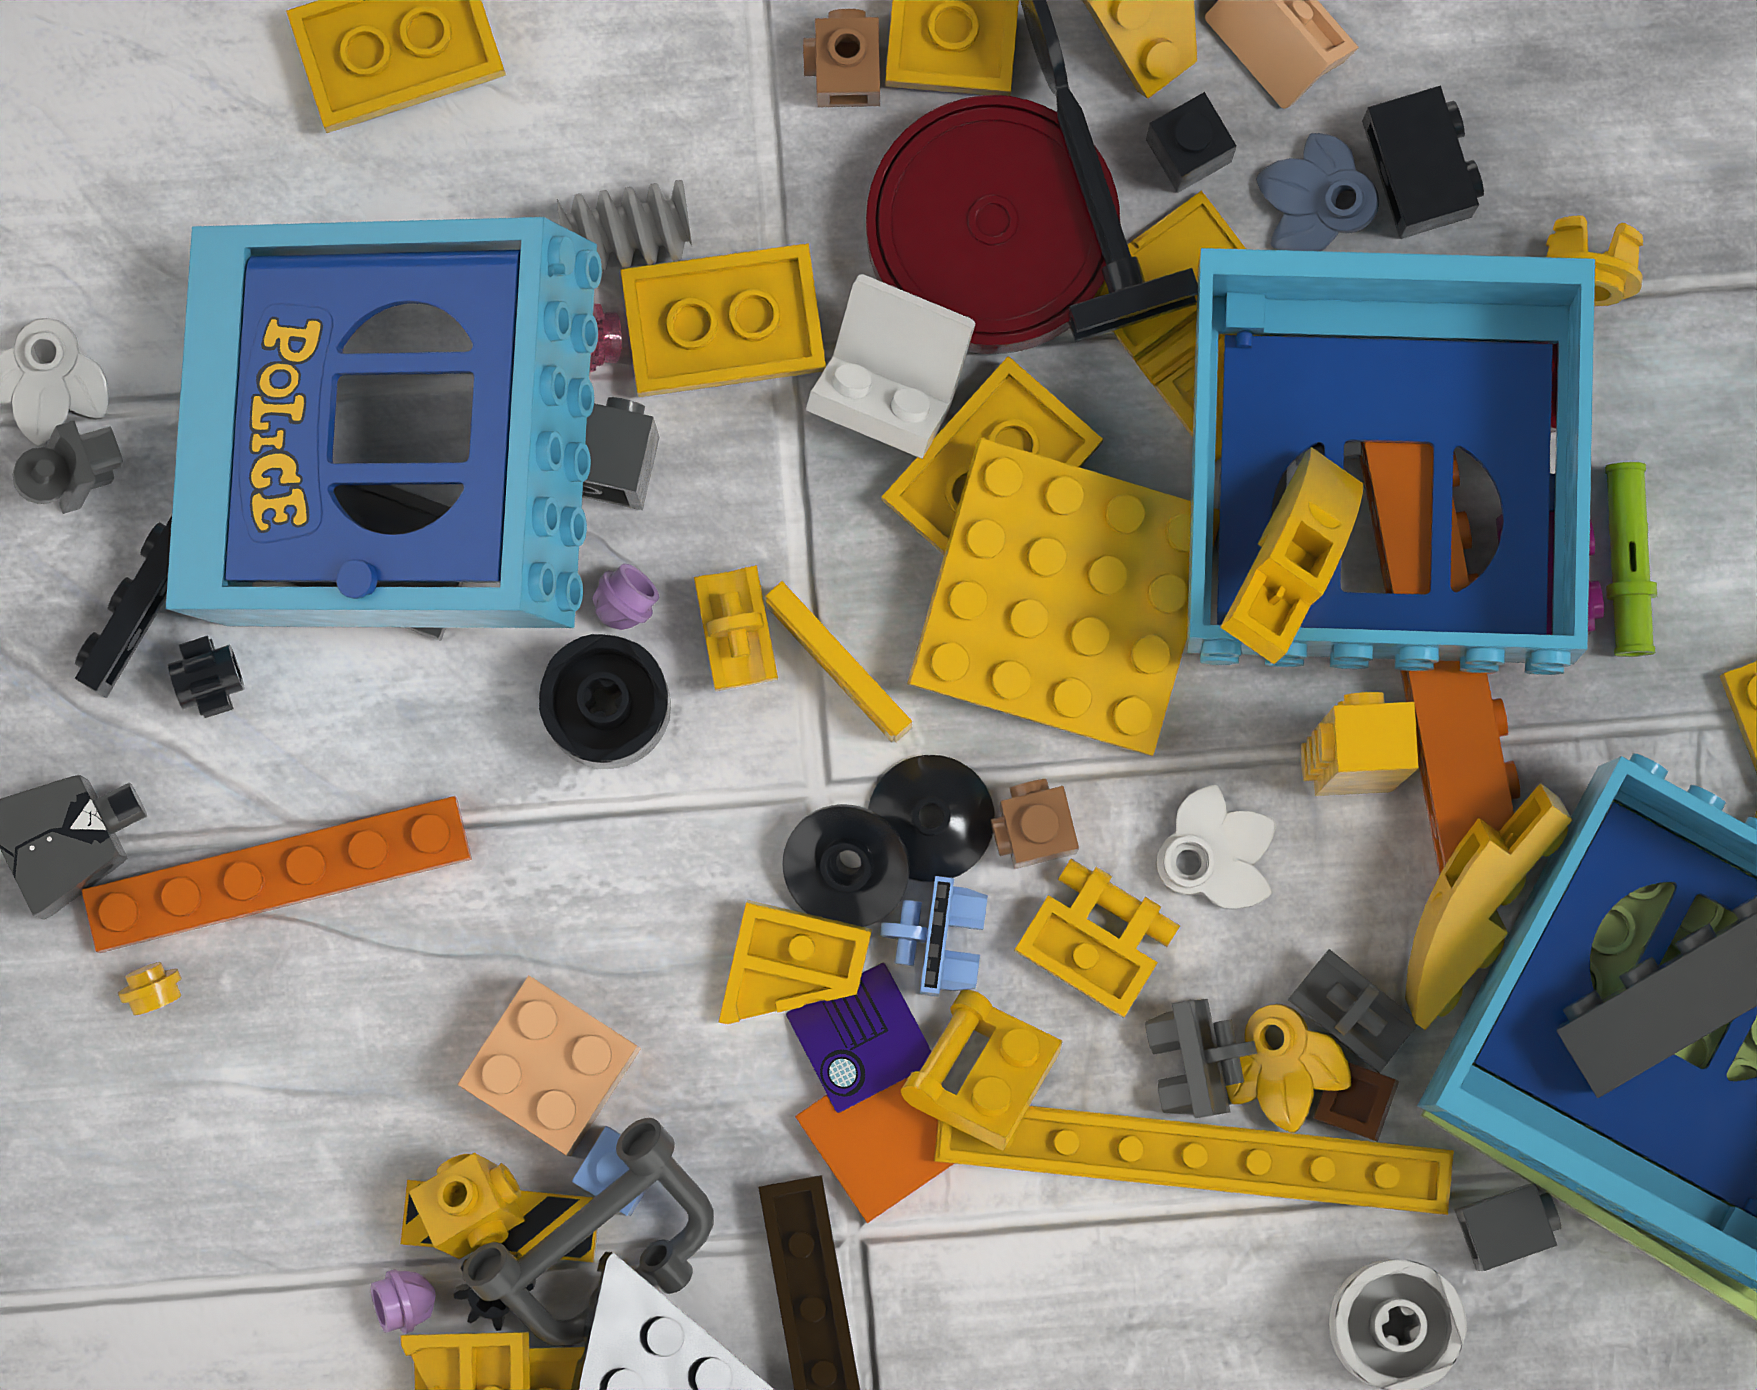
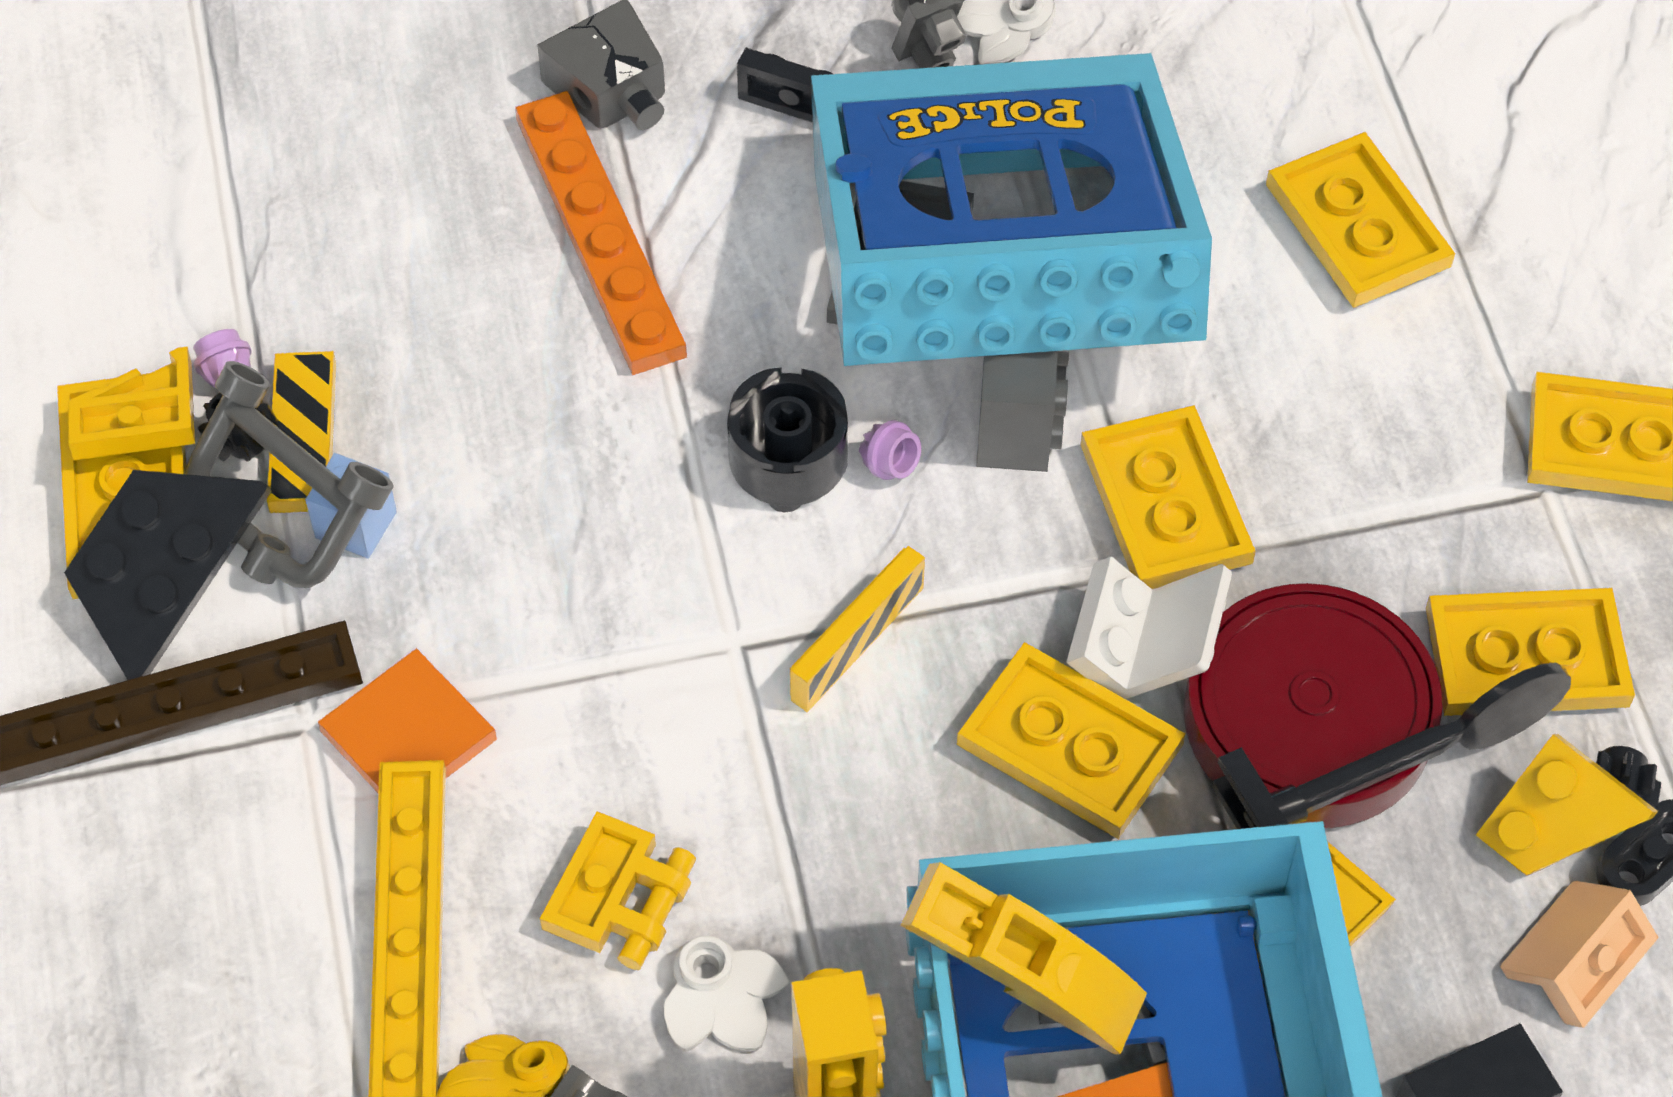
camera: 80 degrees right, 25 degrees down
(150, 988) = (487, 146): yellow plate -> none
(206, 677) = (764, 147): black gear -> none
(468, 1204) = (307, 377): yellow brick -> none
(549, 1066) = (446, 439): light nougat brick -> none
(609, 338) = (1127, 399): clear pink plate -> none
(632, 224) = (1233, 401): light grey piece -> none
(736, 628) = (872, 534): yellow hips -> none
(791, 961) = (565, 626): yellow wing -> none
(832, 889) = (660, 655): black dish -> none
(844, 59) = (1439, 561): medium nougat brick -> none
(861, 1039) = (497, 697): dark purple sticker -> none
(941, 967) = (602, 741): light blue hips -> none
(966, 809) = (720, 761): black dish -> none
(999, 1082) = (464, 809): yellow plate -> none
(1035, 824) = (722, 815): medium nougat brick -> none
(1060, 598) = (939, 778): yellow plate -> none
(1190, 142) = (1440, 870): black brick -> none
(1192, 1032) = (504, 997): dark grey hips -> none
(1308, 195) = (1419, 1008): sand blue plate -> none

